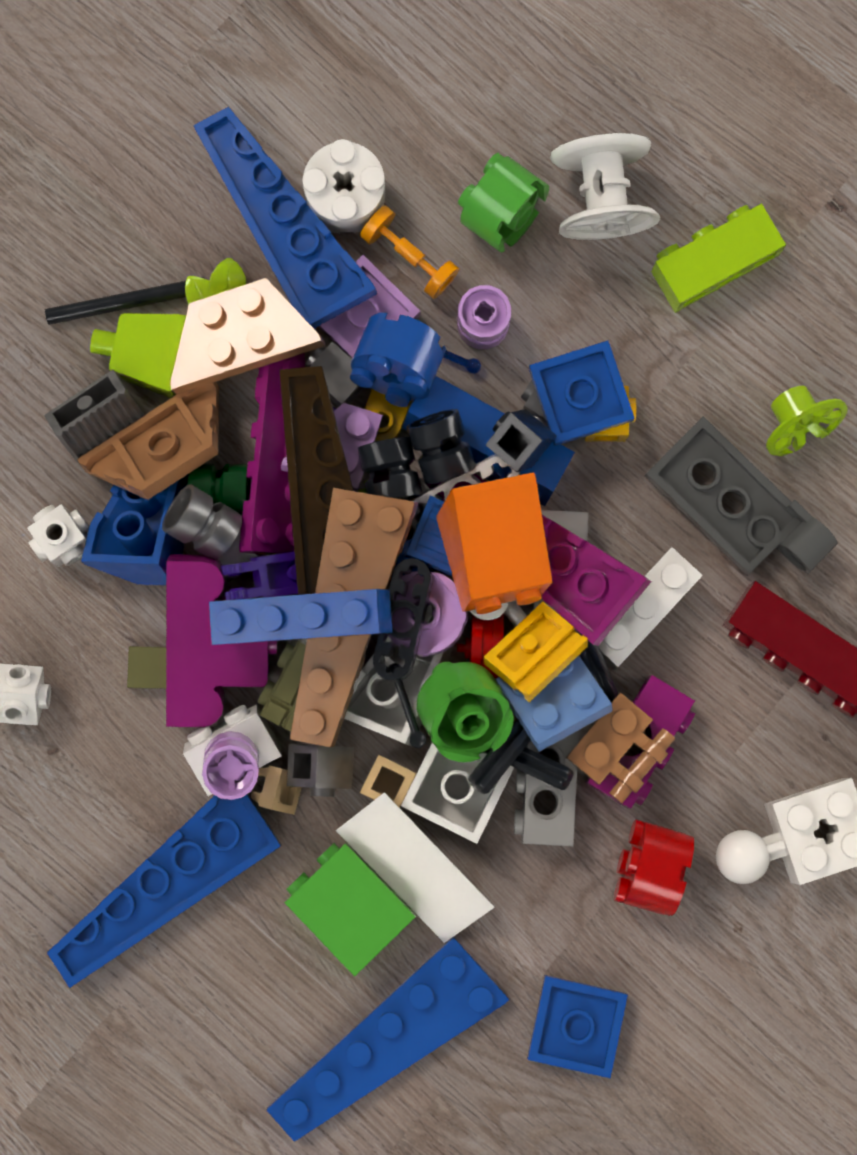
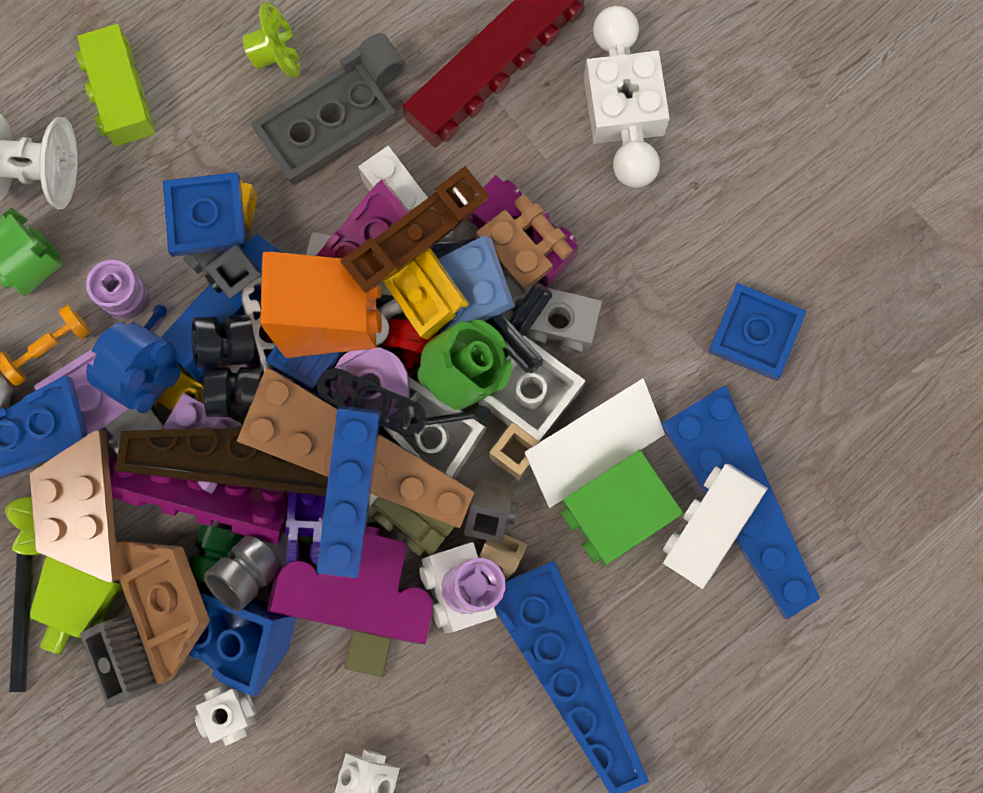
camera: 75 degrees left, 5 degrees down
(349, 1011) = (713, 524): none -> white brick
(594, 629) = (416, 231): none -> reddish brown slope
(654, 868) = (633, 236): red brick -> none

